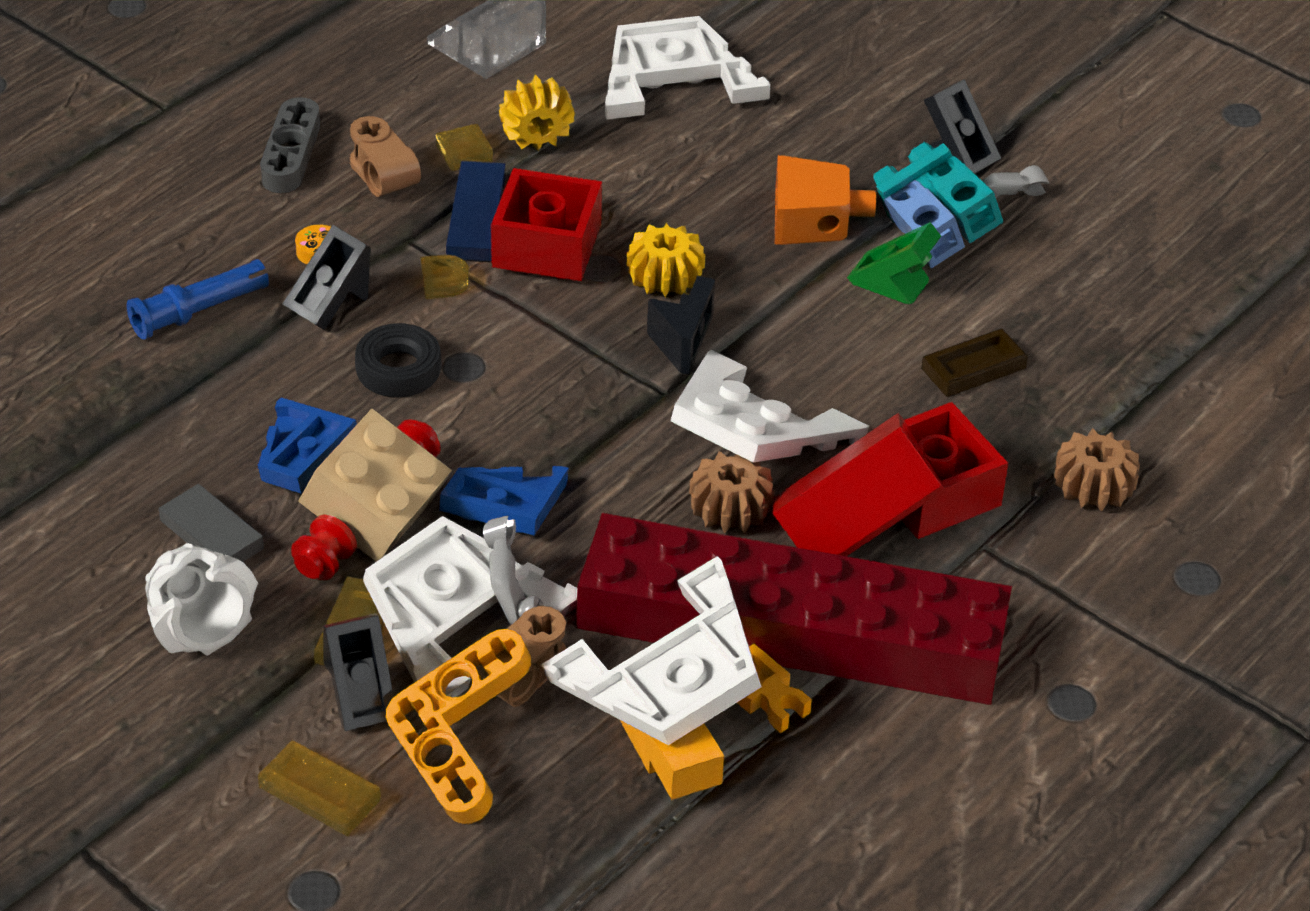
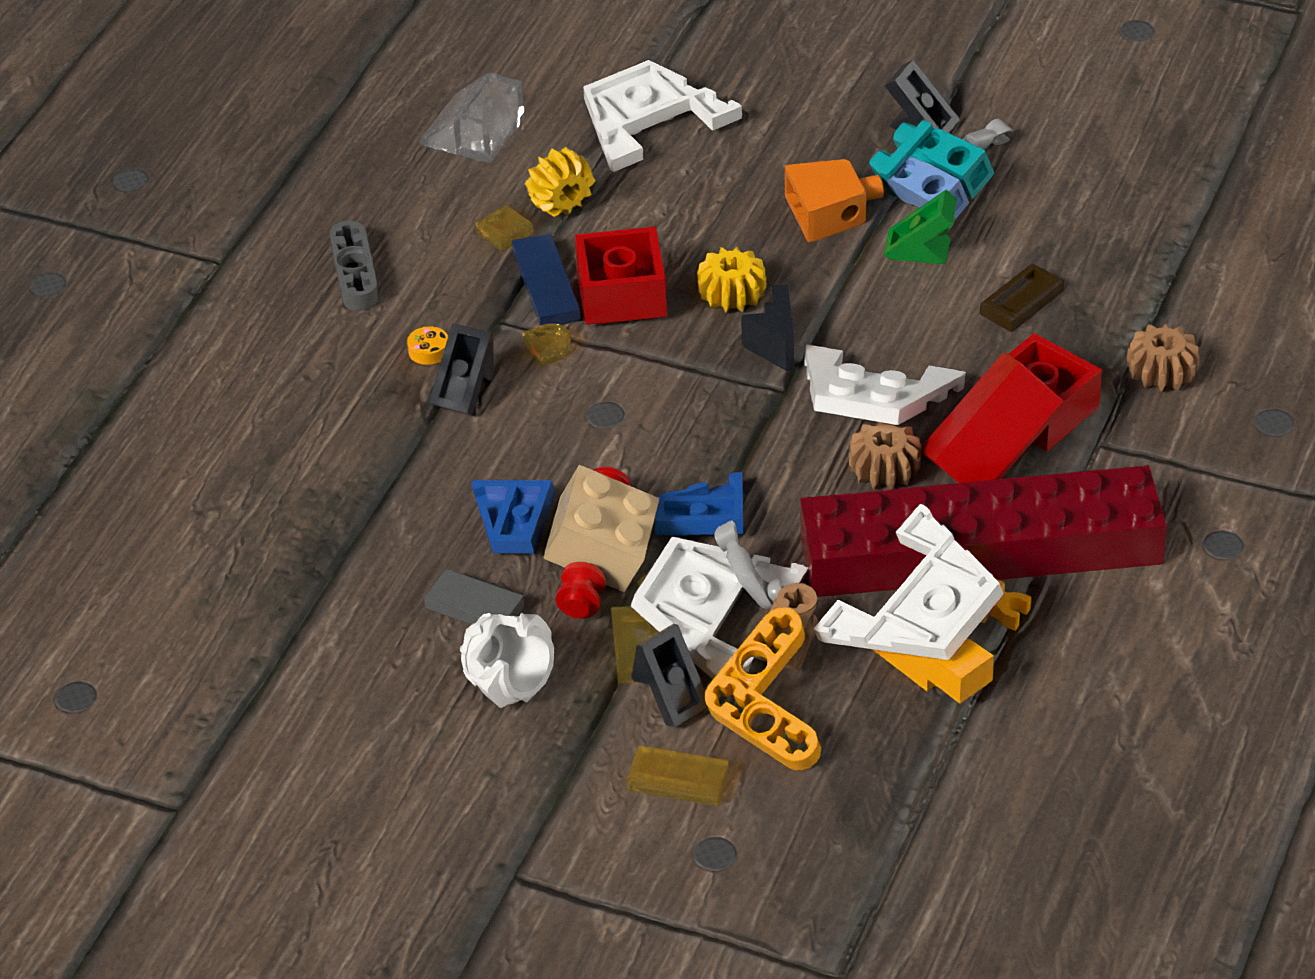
camera: 15 degrees left, 0 degrees up
(179, 303) = (341, 426): blue pin -> none
(382, 157) = (444, 255): medium nougat piece -> none
(398, 380) = (551, 404): black tyre -> none

